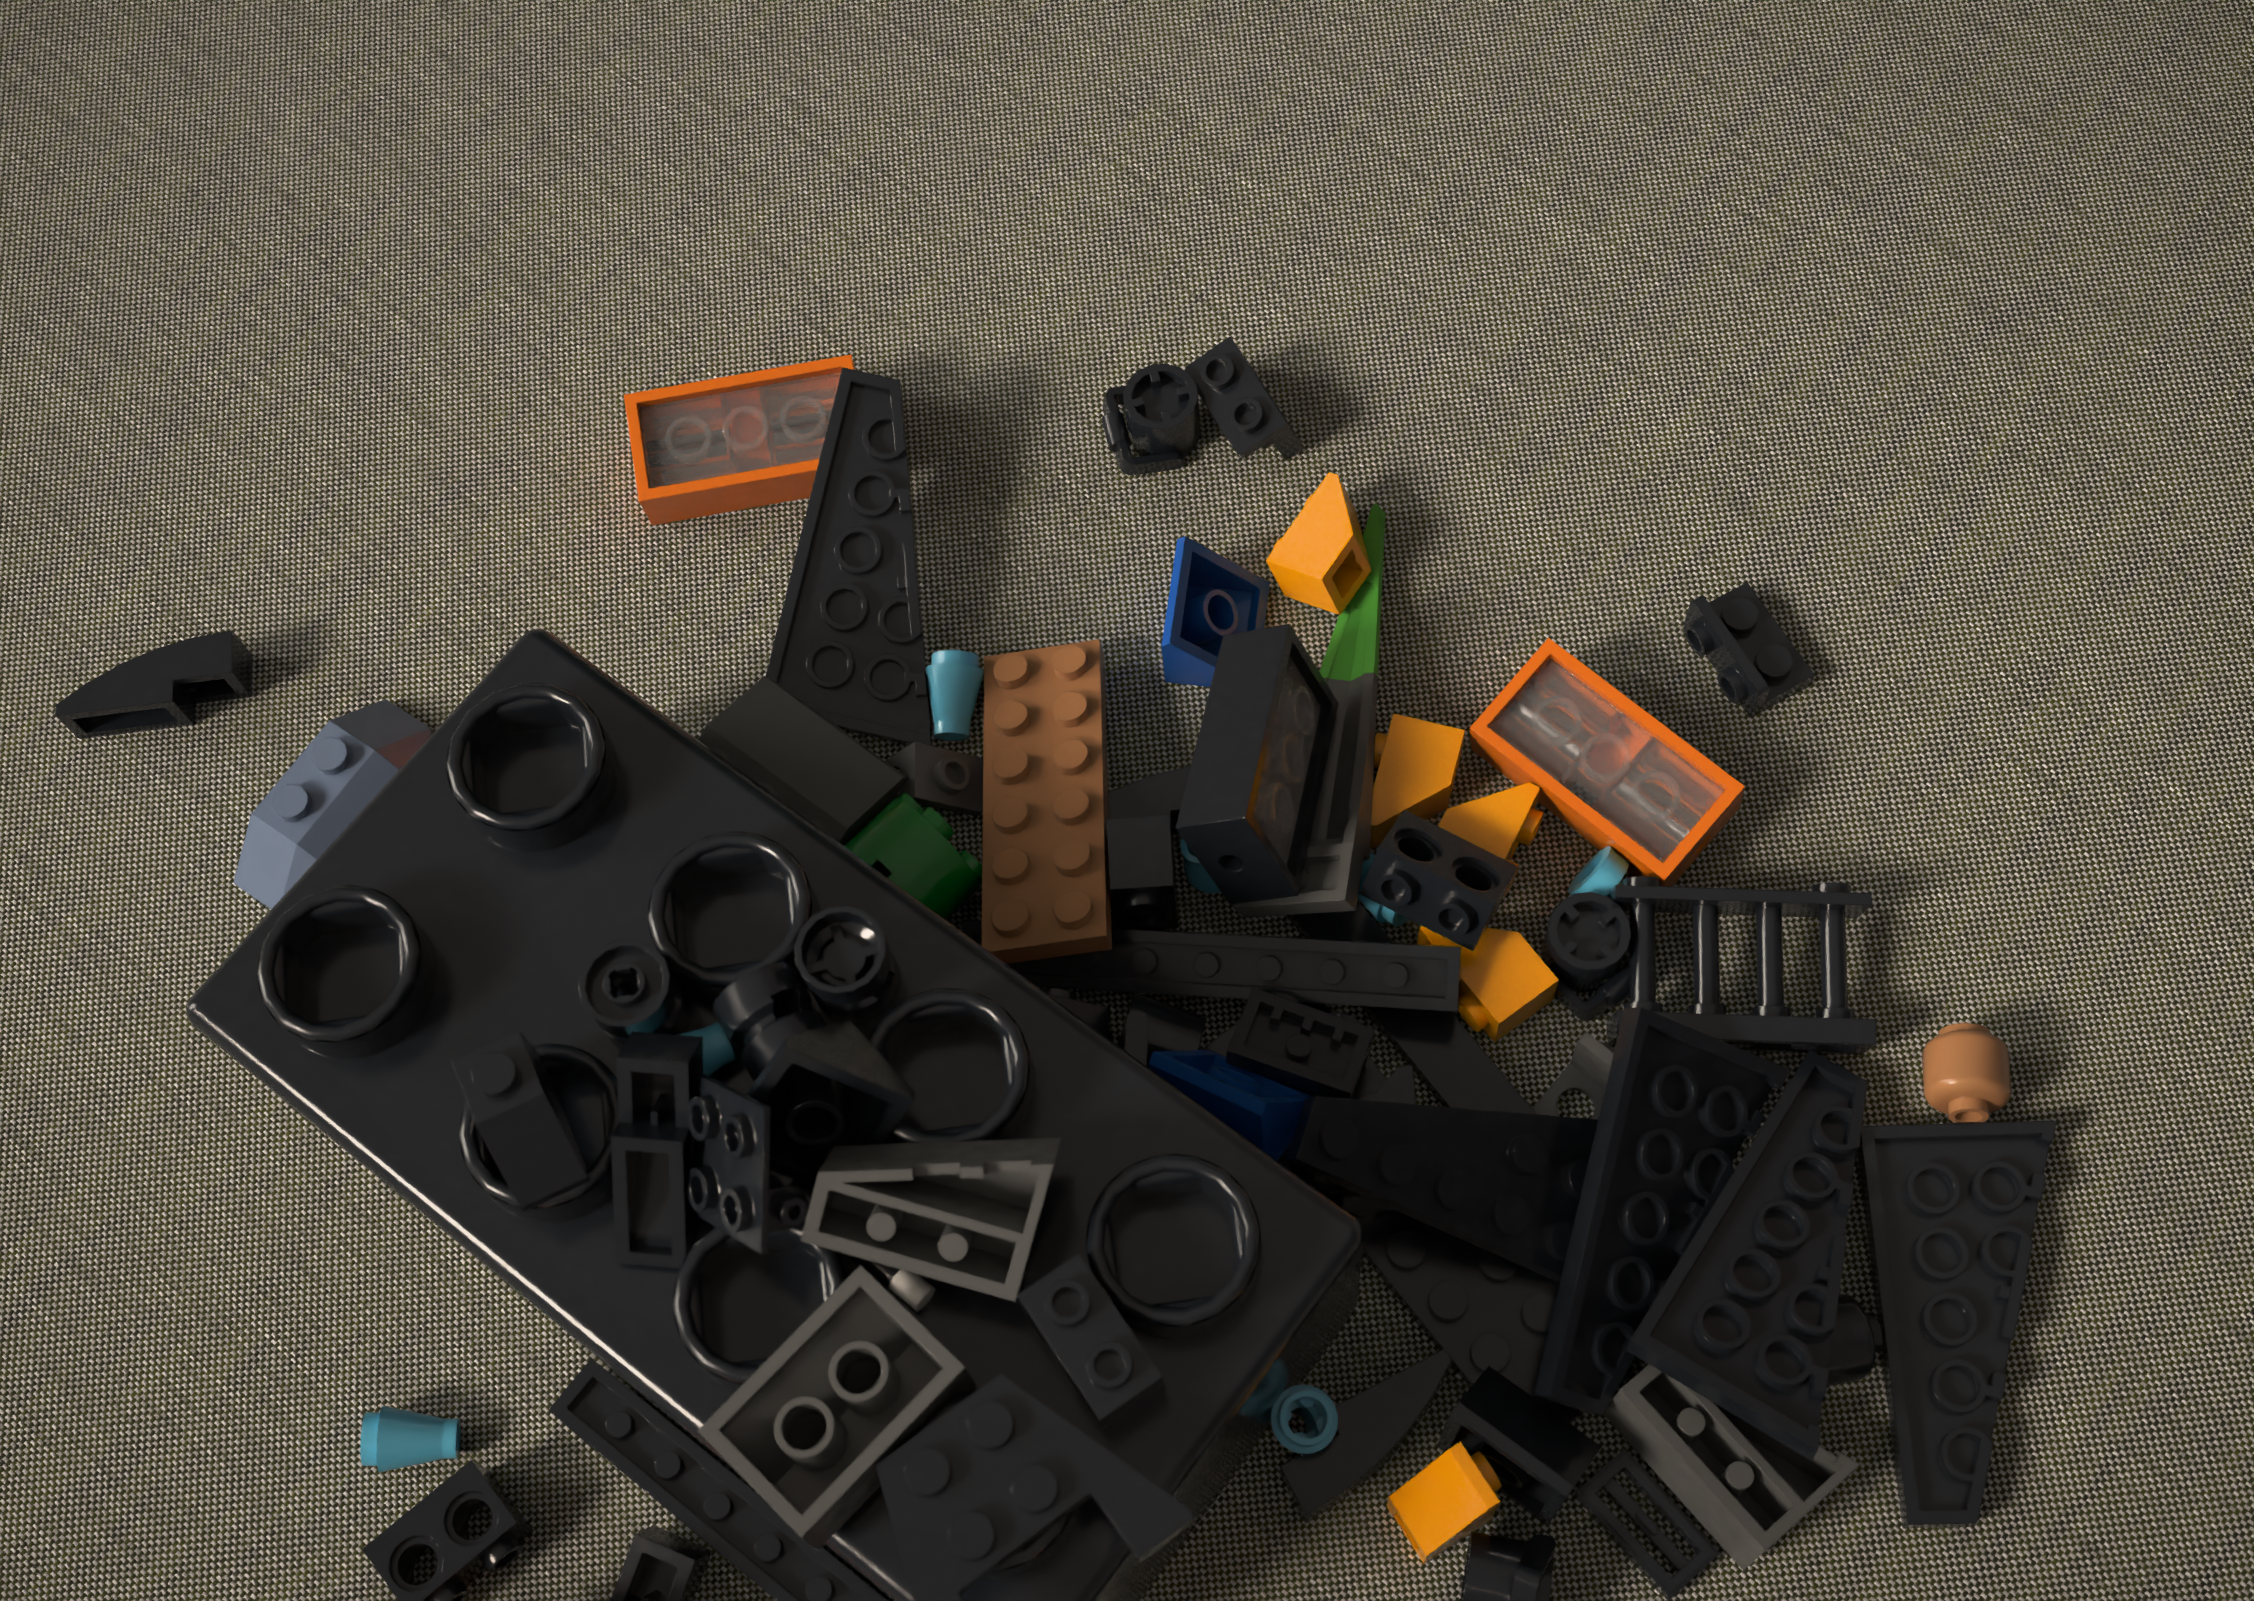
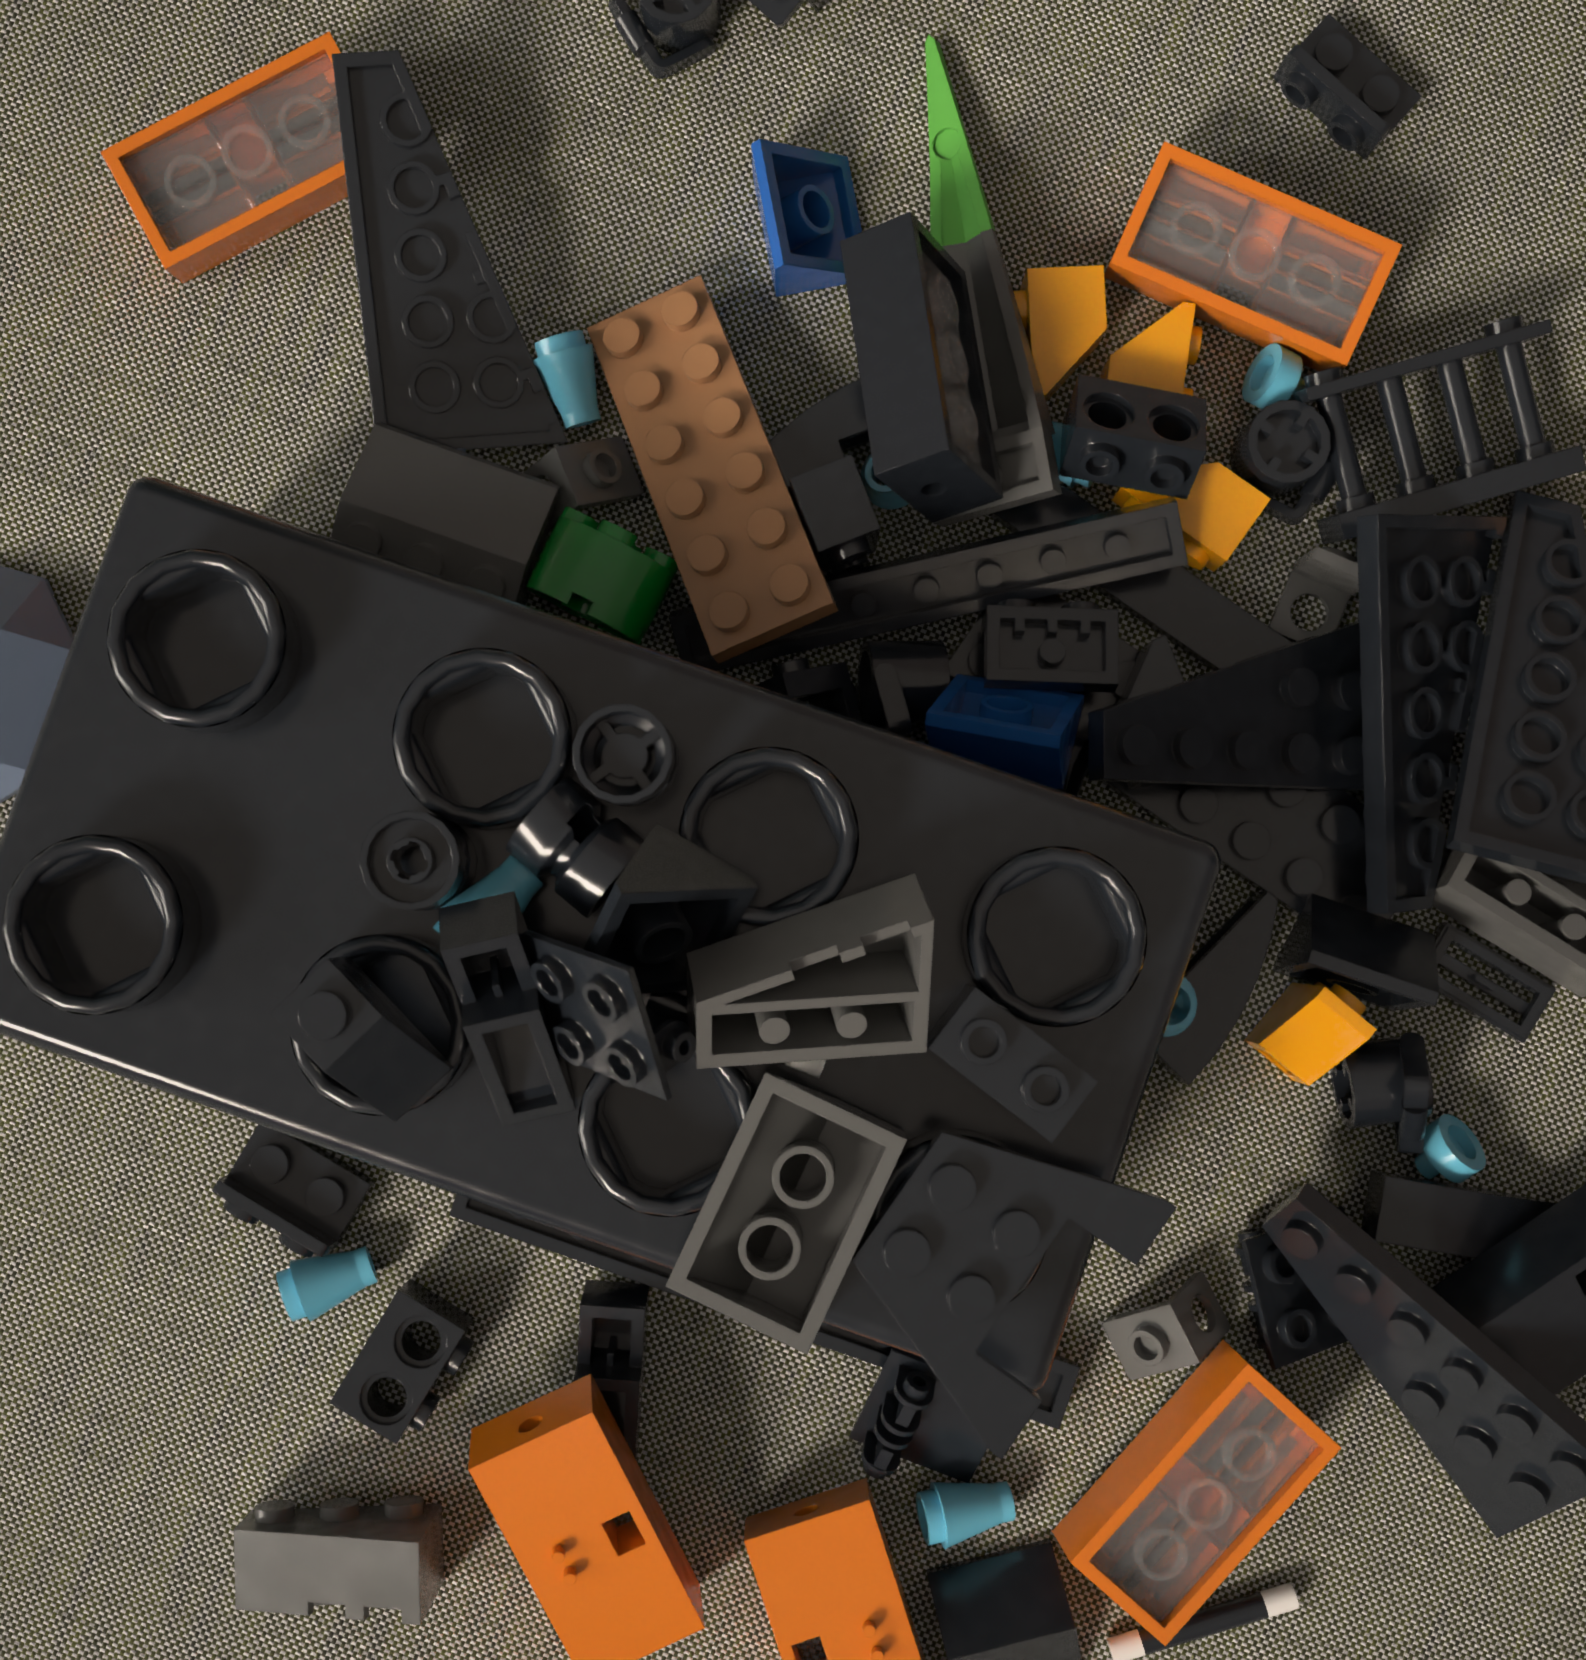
camera: 25 degrees left, 20 degrees up
(417, 1341) = (294, 1191): none -> black bracket
(1323, 551) = (896, 110): light orange slope -> none

